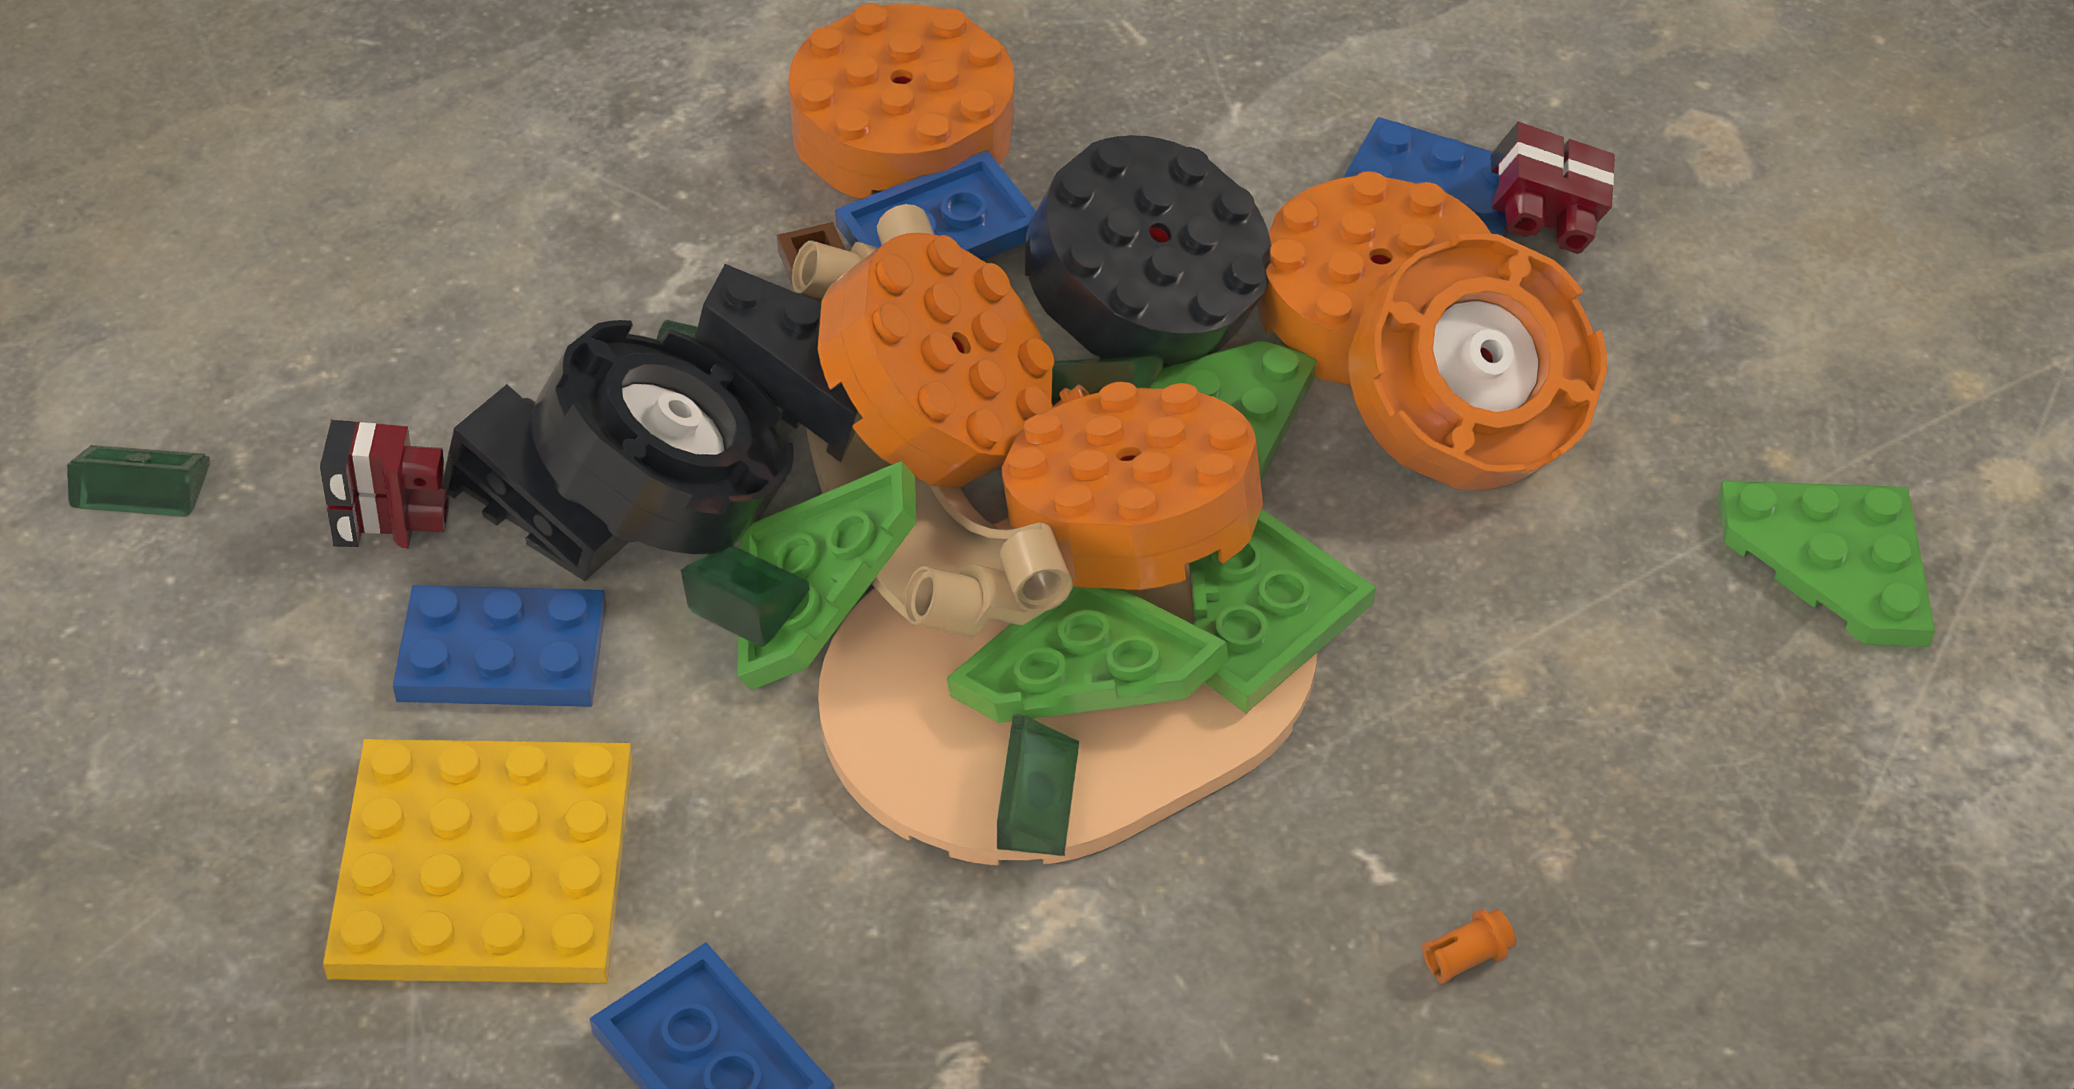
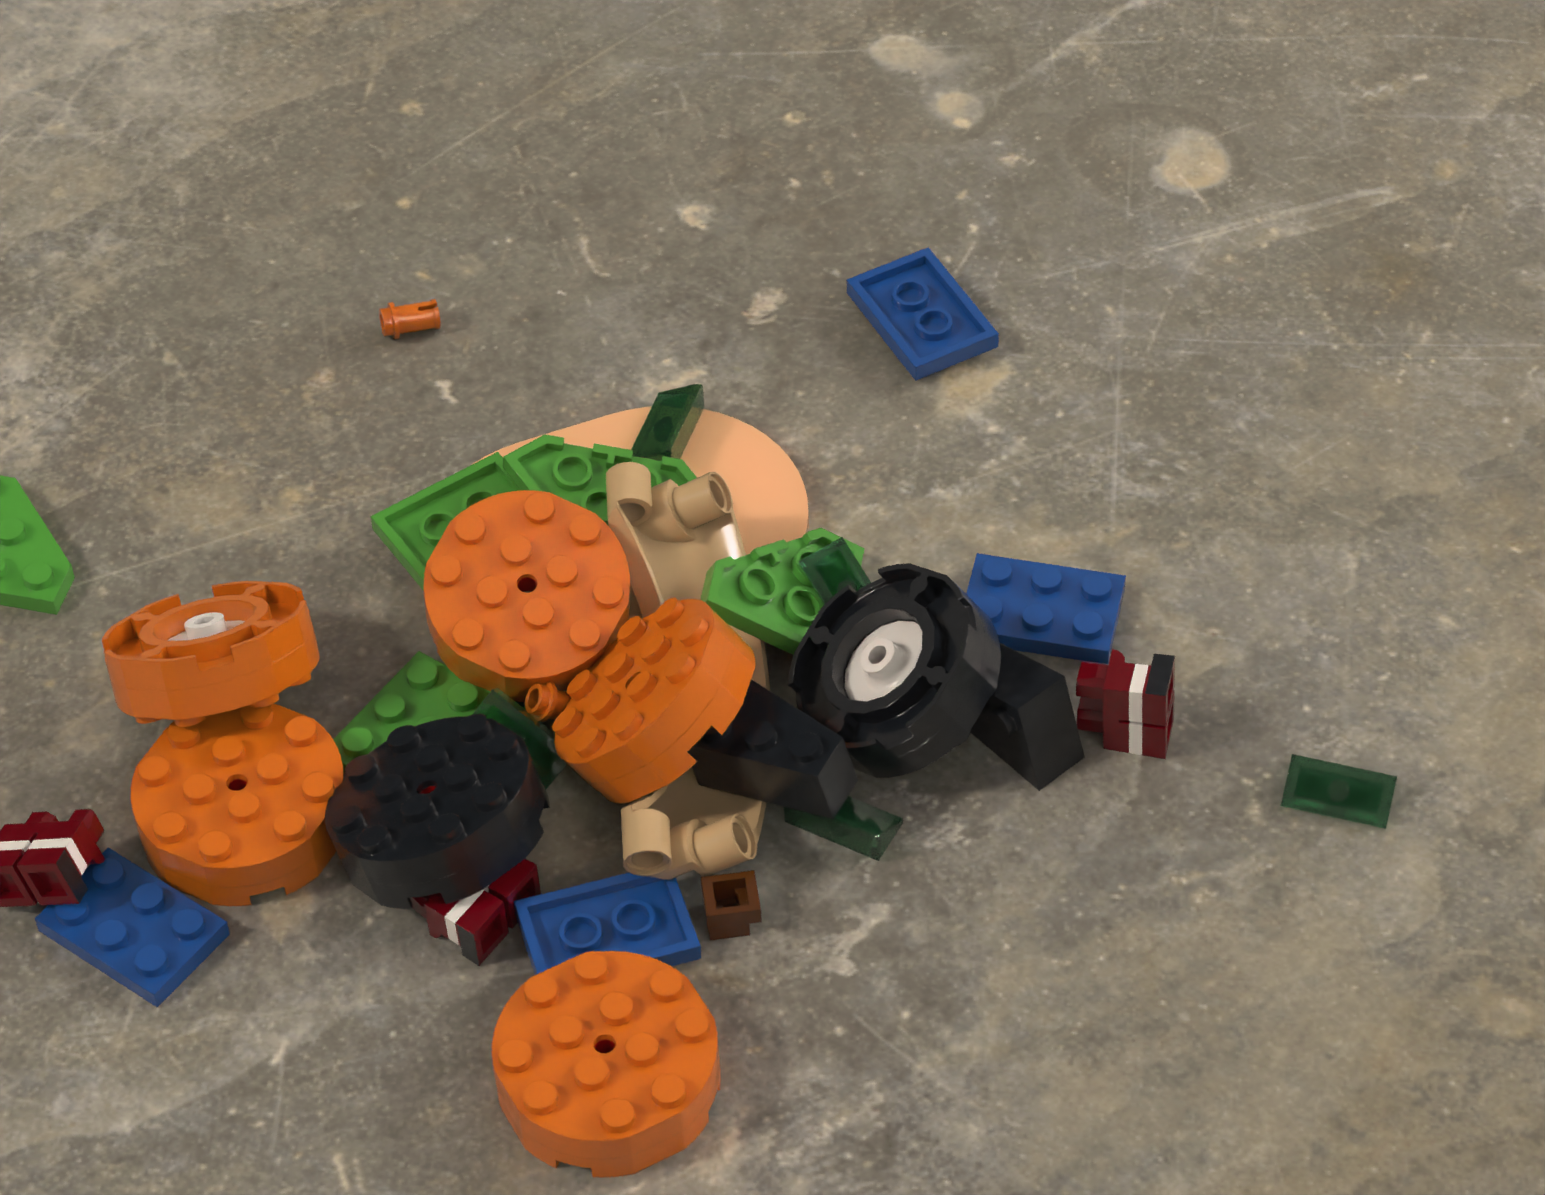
camera: 165 degrees left, 0 degrees up
(481, 862) = (1064, 462): yellow plate -> none

